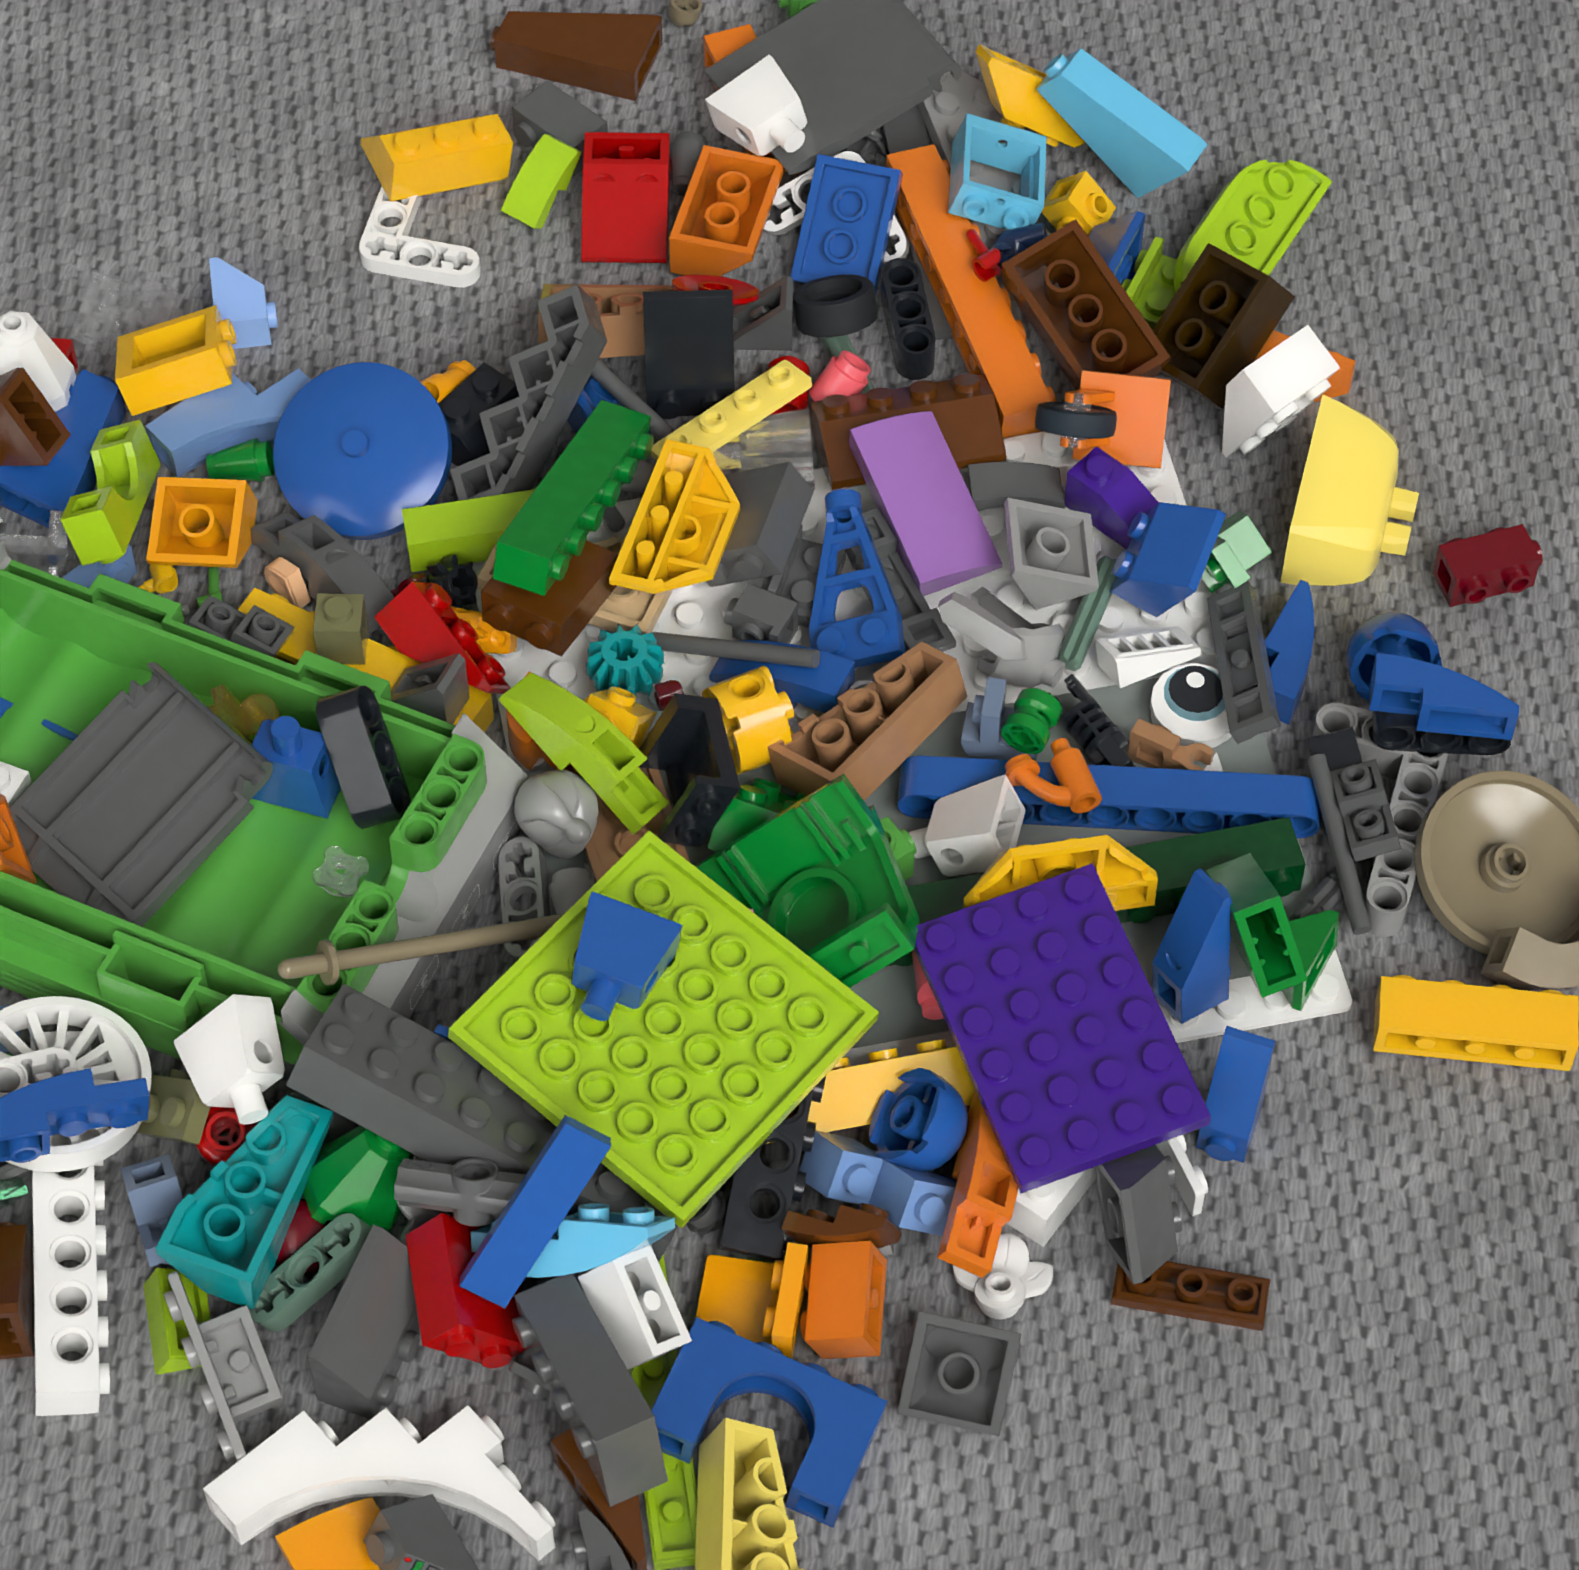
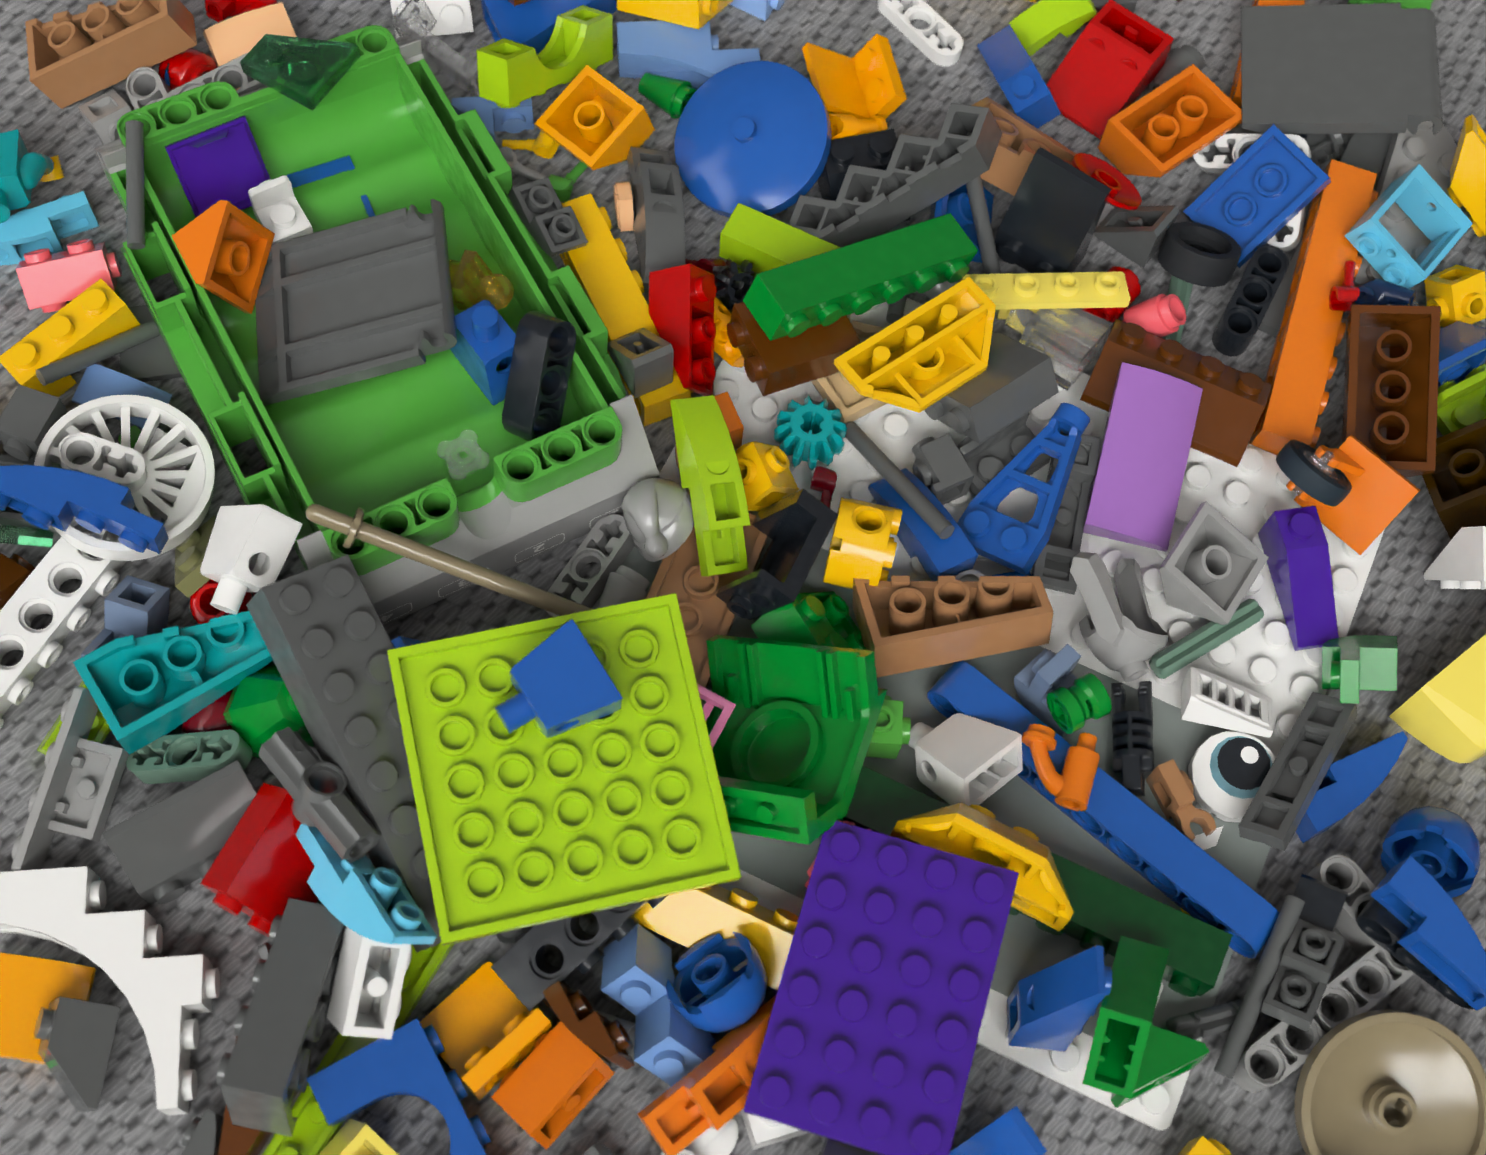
camera: 30 degrees right, 10 degrees up
(341, 627) = (616, 265): olive brick -> none
(415, 338) = (857, 85): none -> light orange bracket
(535, 1211) = (335, 850): blue tile -> none
(551, 250) = (1019, 78): none -> blue slope
(759, 110) = (1255, 61): white torso -> none
(1023, 481) = (1229, 491): dark grey slope -> none
(1165, 555) = (1302, 636): blue slope -> none

